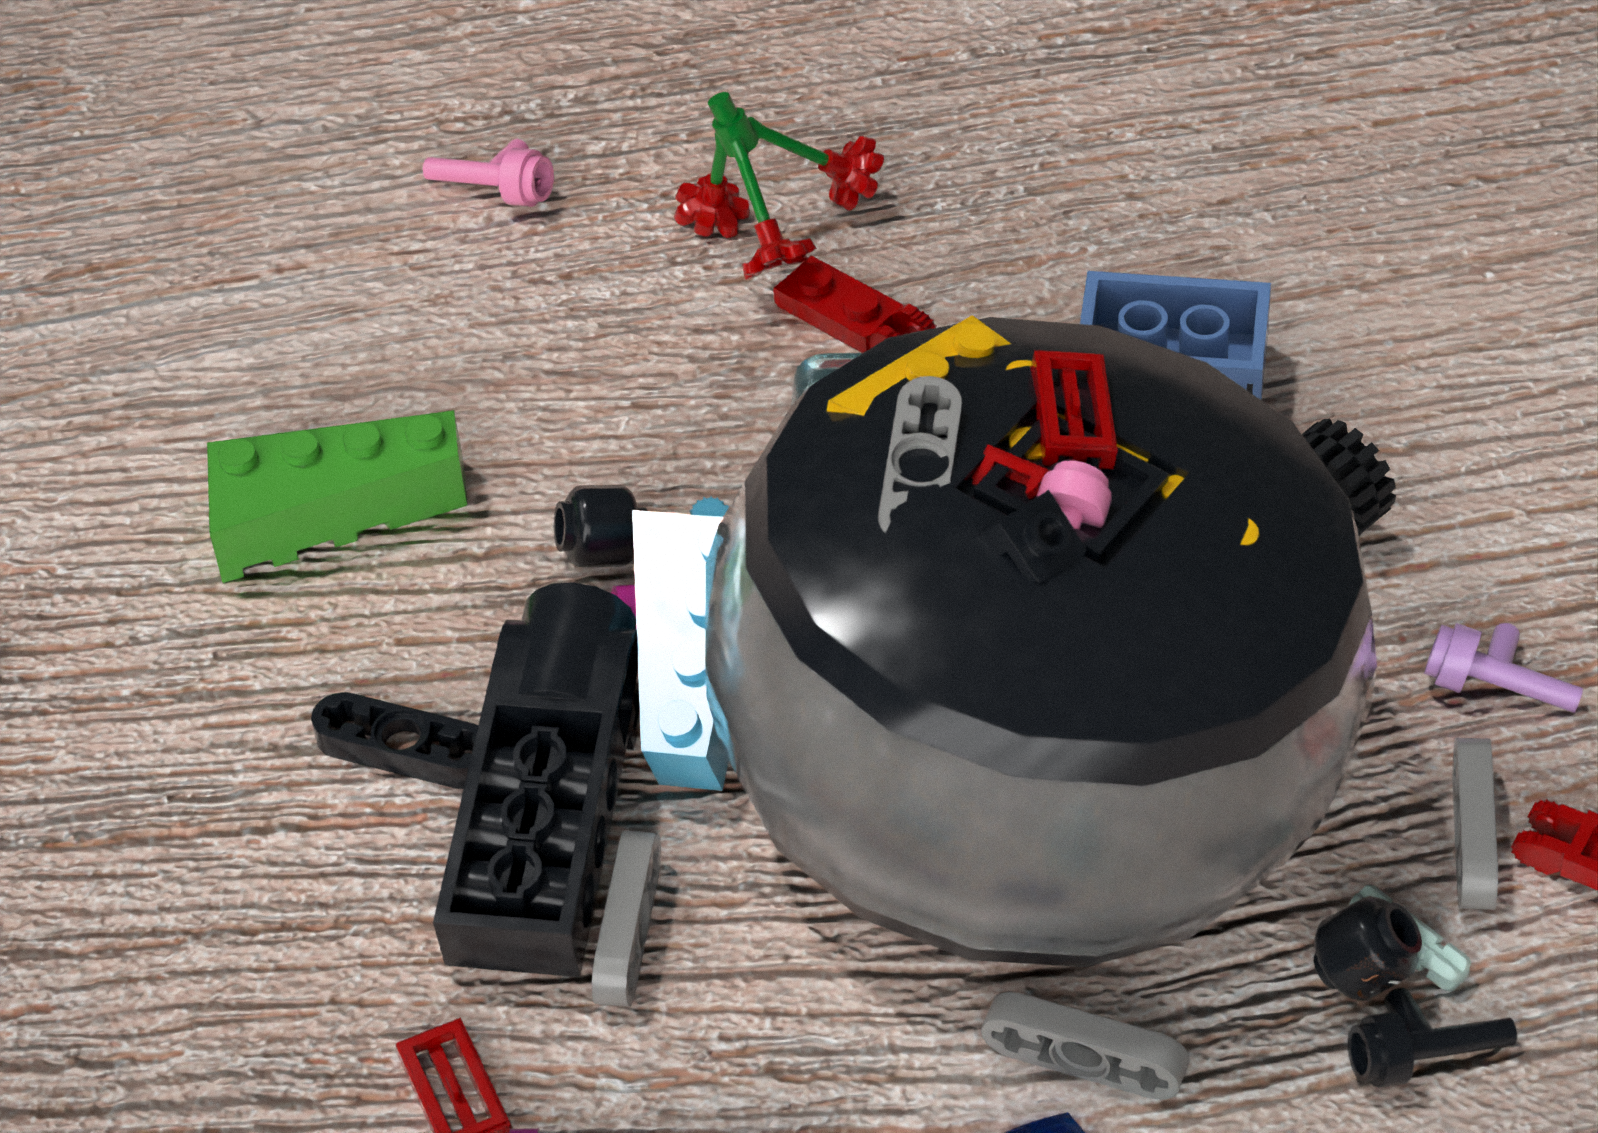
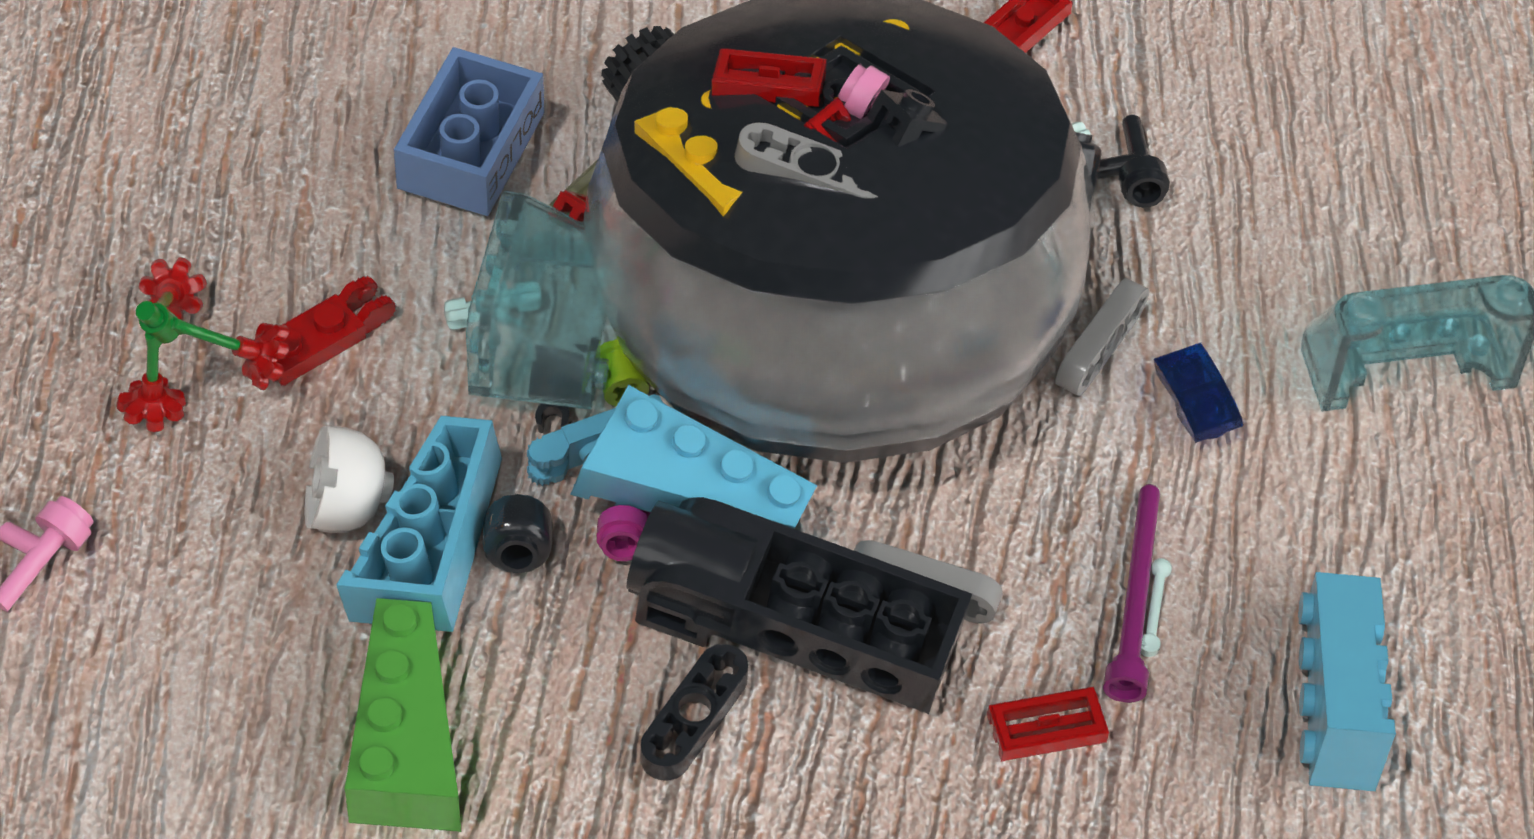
camera: 85 degrees left, 5 degrees up
(538, 446) = (429, 526): none -> medium azure wedge
(624, 358) = (346, 481): none -> white cylinder

